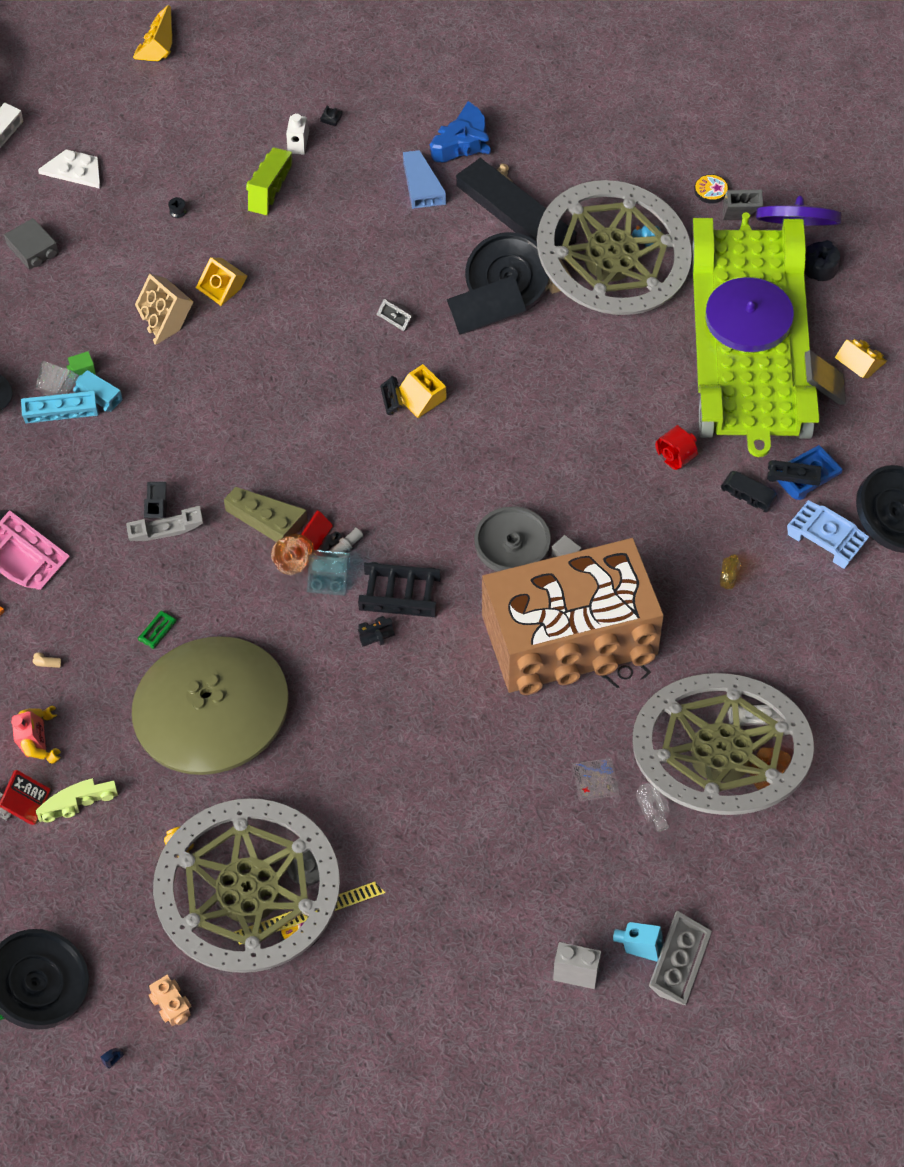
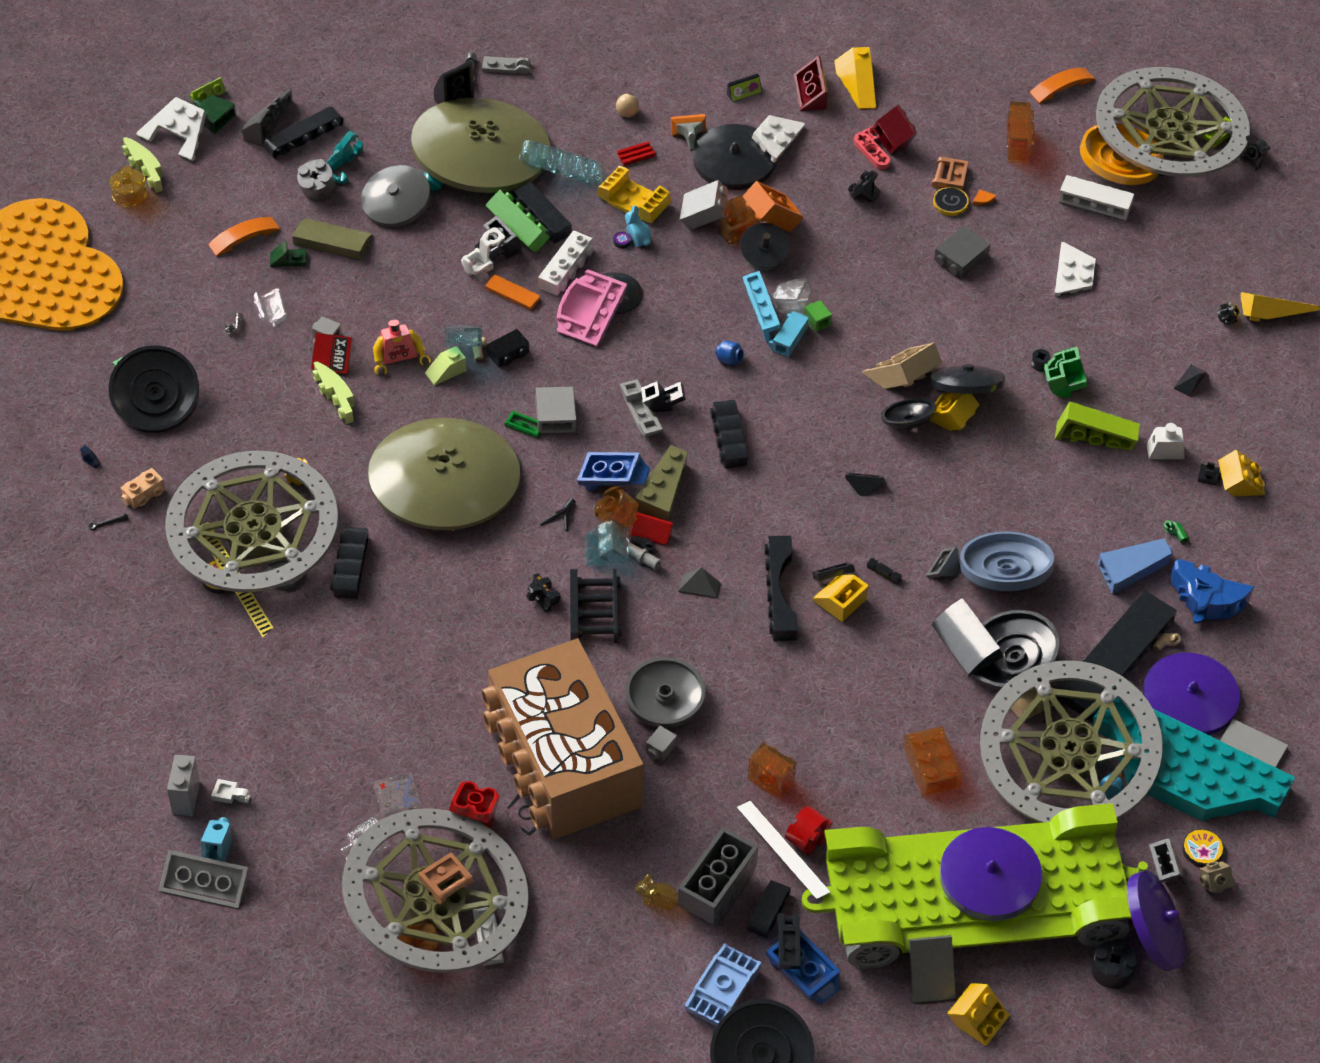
camera: 80 degrees right, 5 degrees down
(38, 667) = (463, 335): none -> clear light blue slope
(55, 633) = (507, 348): none -> black brick
(67, 691) = (446, 366): none -> yellowish green slope
(110, 443) = (729, 353): none -> blue head
(148, 597) = (555, 410): none -> light grey brick
(157, 68) = (1228, 313): none -> black gear
(197, 257) = (968, 379): none -> black dish
(200, 188) = (1066, 372): none -> green brick
(207, 1058) = (92, 526): none -> black hinge
(208, 455) = (729, 433): none -> black brick
(222, 310) = (908, 413): none -> black dish
(223, 108) = (1190, 380): none -> black slope
(243, 552) = (612, 469): none -> blue slope
(276, 604) = (566, 508): none -> black plant
(289, 359) = (863, 483): none -> black slope
(310, 799) = (350, 563): none -> black brick
(340, 94) = (1241, 475): none -> yellow slope
(366, 434) = (783, 617): none -> black arch
(385, 504) = (699, 583): none -> dark grey slope
(387, 147) = (1176, 529): none -> green arm
(394, 359) = (884, 571): none -> black axle
(409, 263) = (1007, 561): none -> sand blue container
(557, 165) = (1193, 691): none -> dark purple container
(577, 931) = (227, 791): none -> white plate
(610, 351) = (932, 761): none -> clear orange brick
(612, 465) = (772, 770): none -> clear orange brick
(617, 140) = (1254, 743): none -> light grey tile
(625, 707) = (475, 802): none -> red piece
(648, 161) = (1201, 771): none -> teal brick
(697, 467) = (783, 849): none -> white sticker
(707, 736) = (443, 871): none -> nougat plate
(727, 516) = (718, 877): none -> dark grey brick
(744, 179) = (1216, 877): none -> dark tan brick

